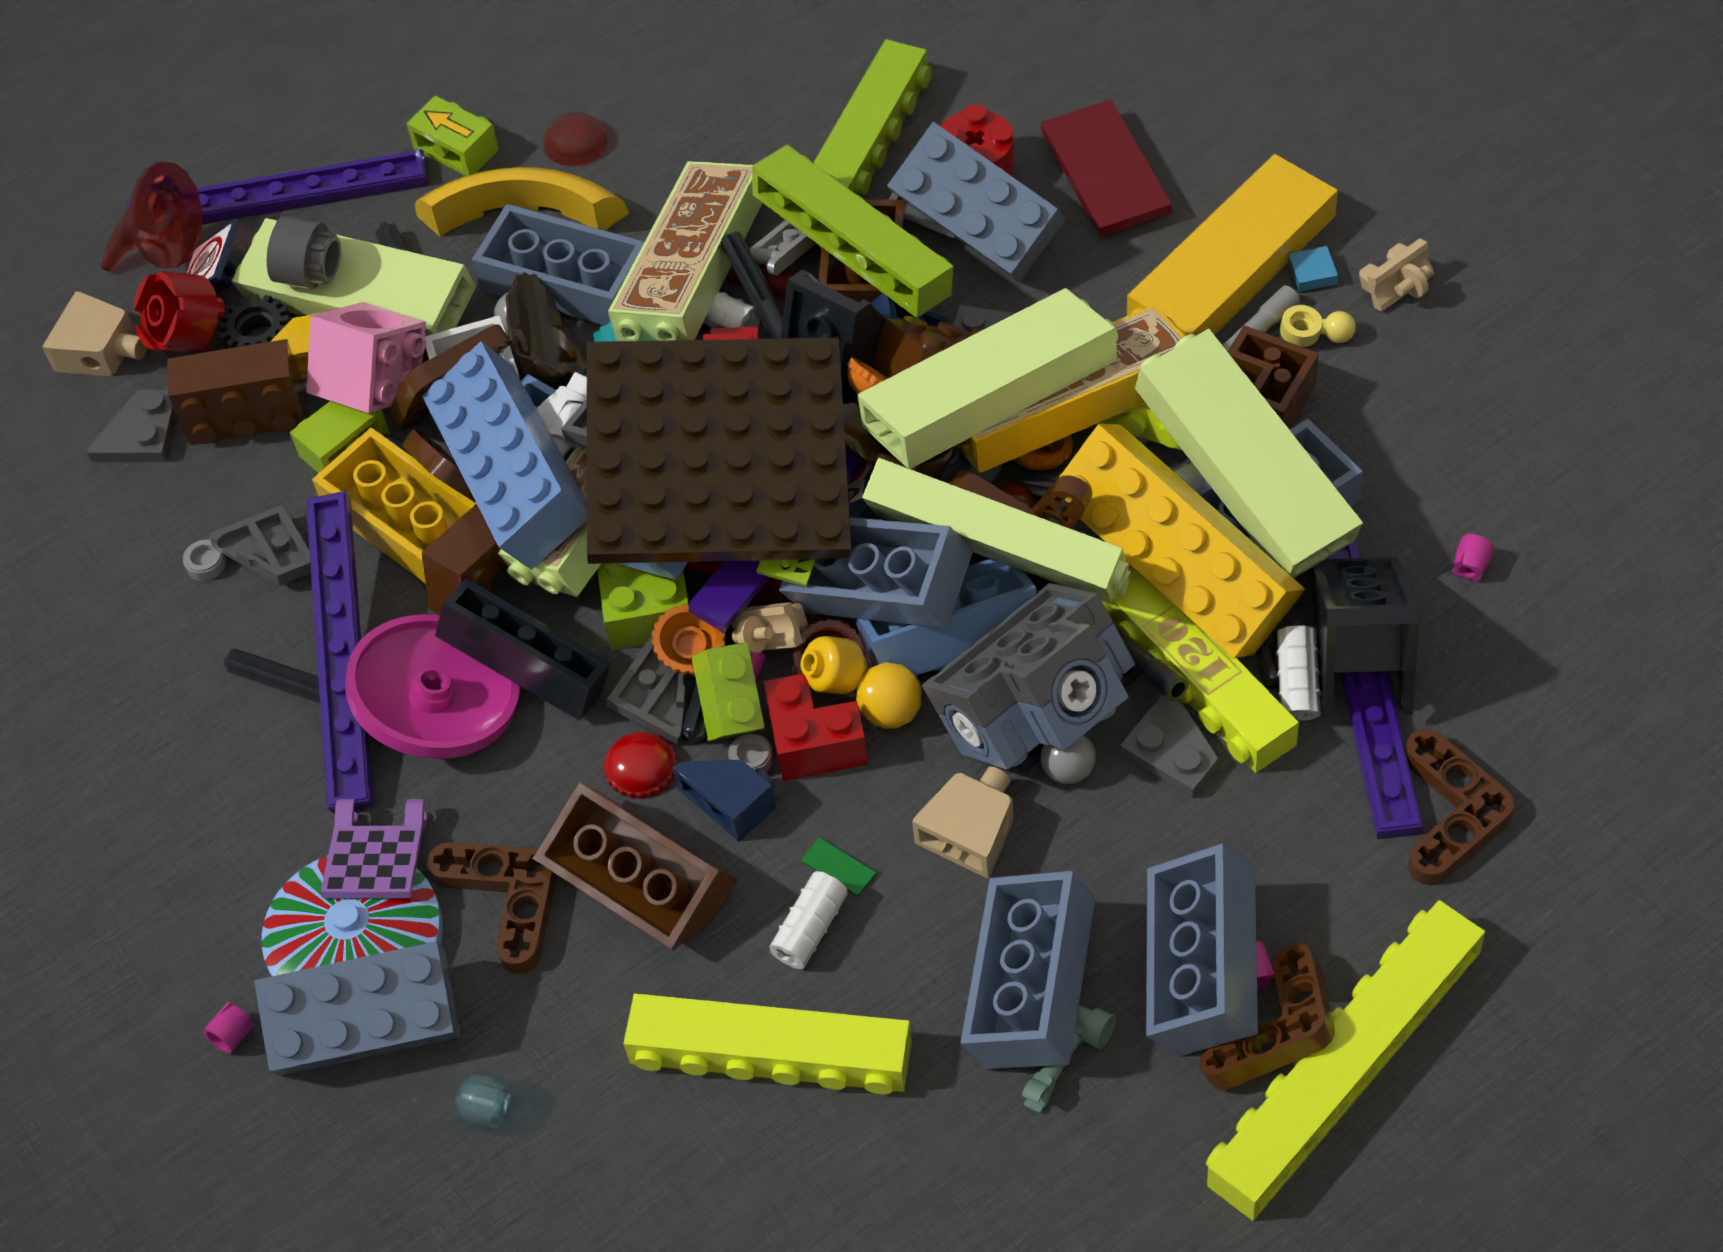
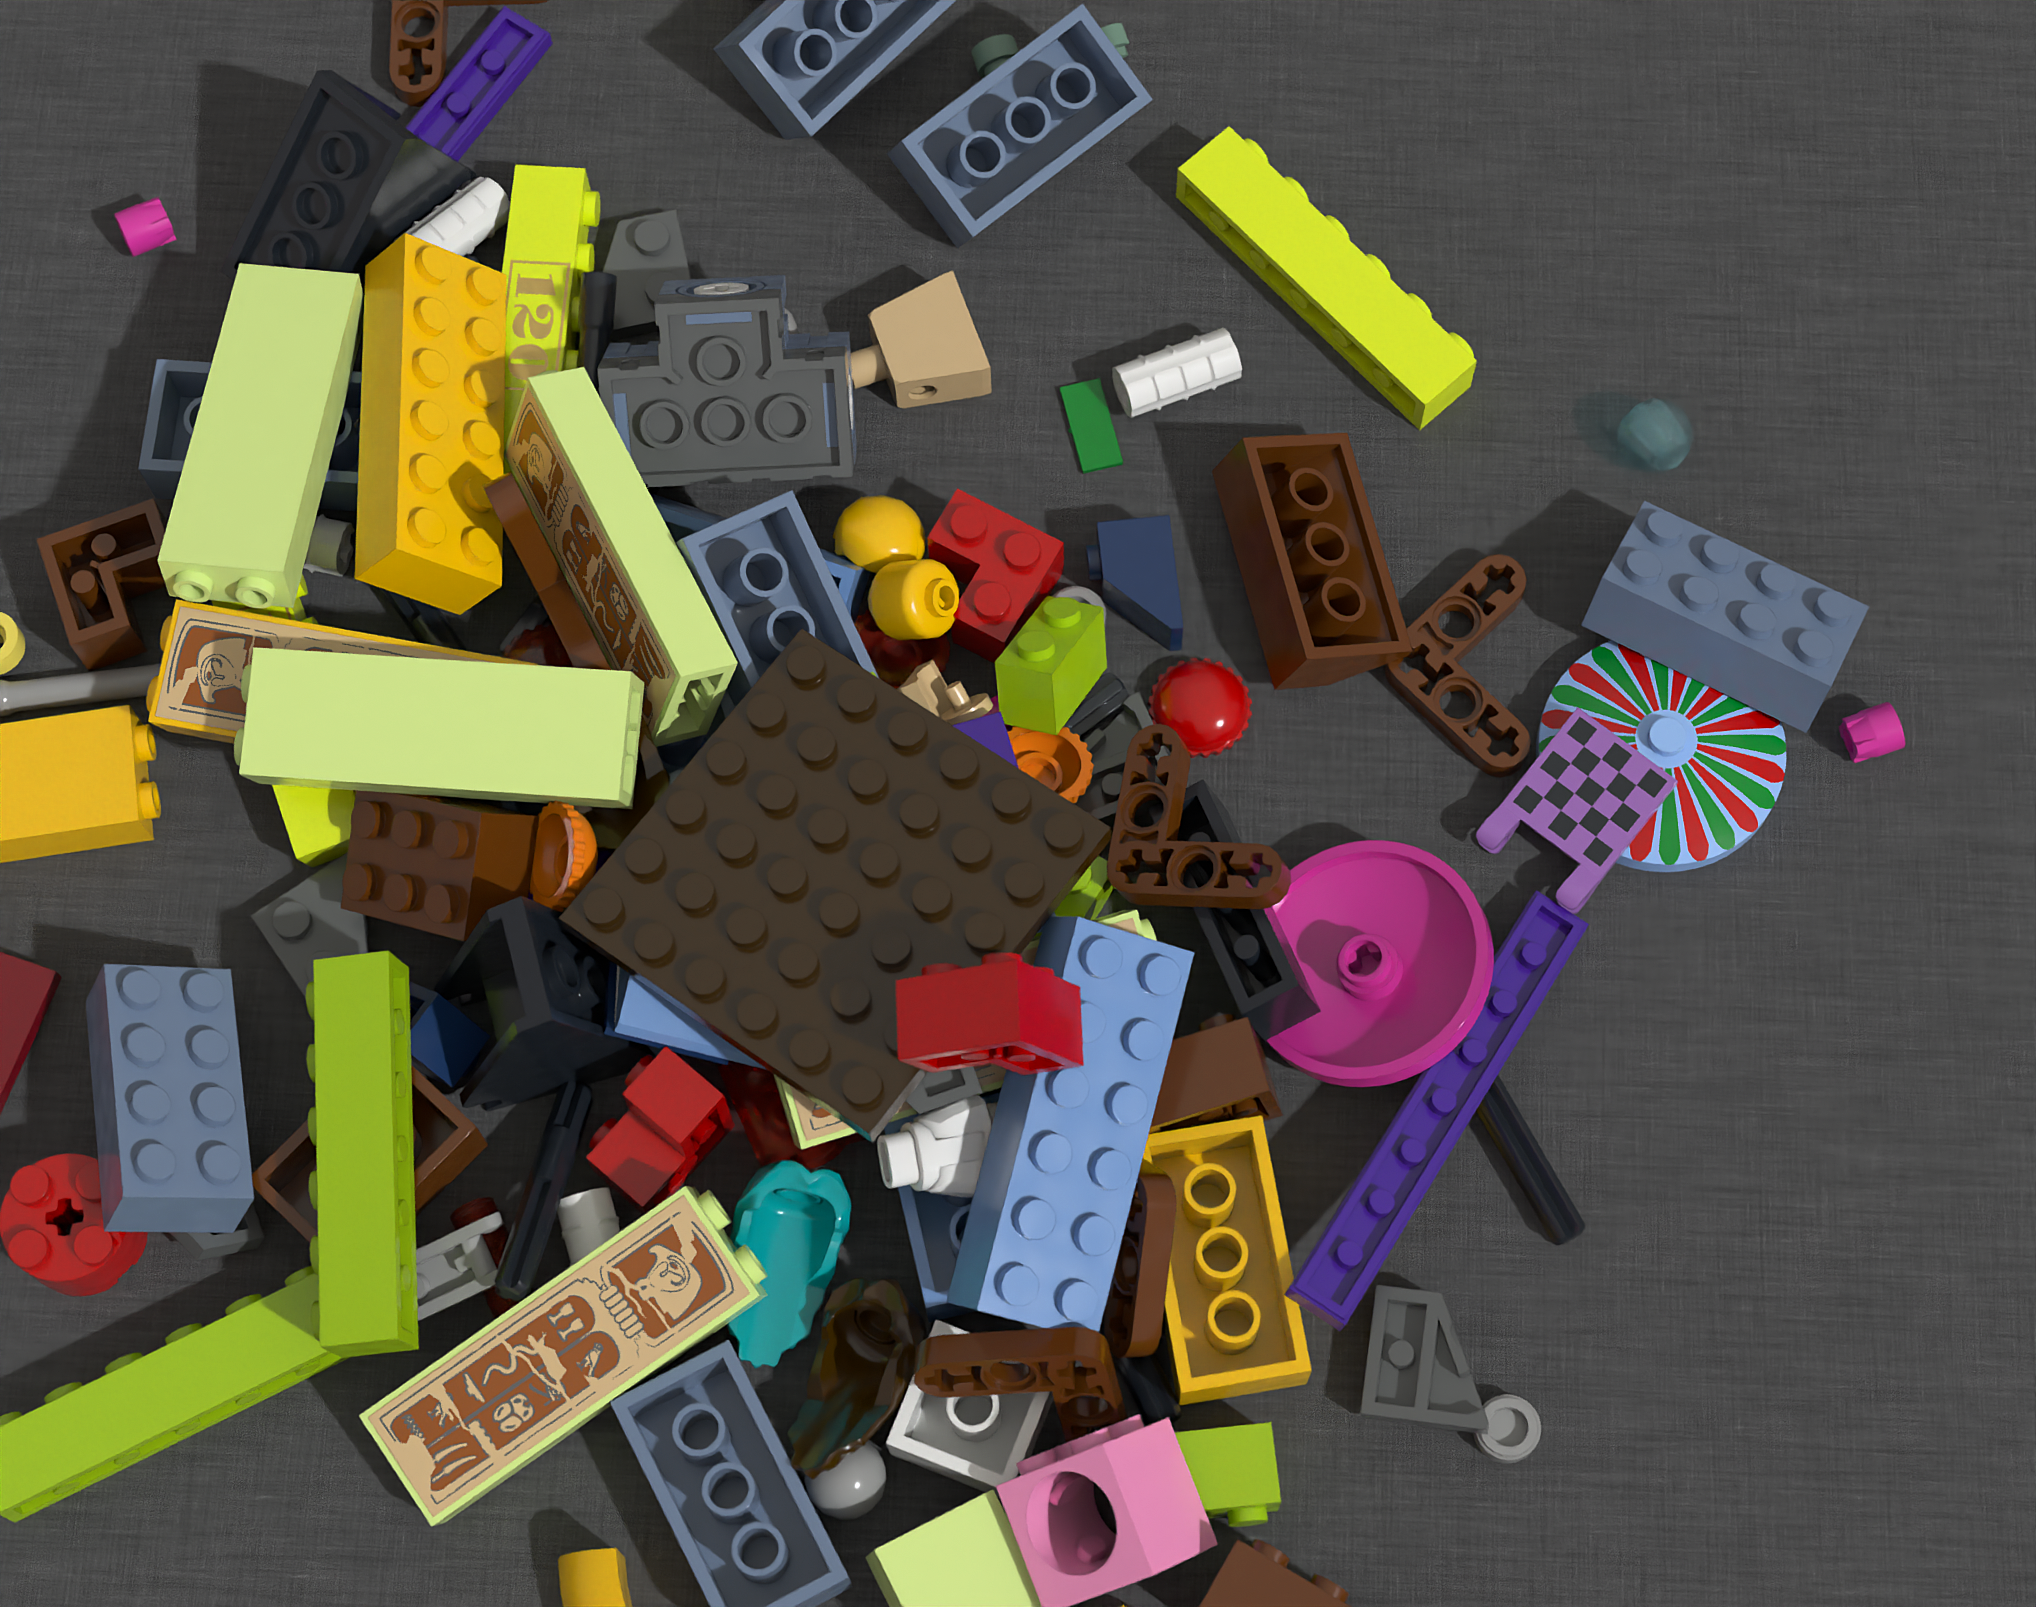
camera: 145 degrees left, 15 degrees up
(550, 398) = (989, 1015): none -> red brick
(581, 634) = (1159, 843): none -> reddish brown beam

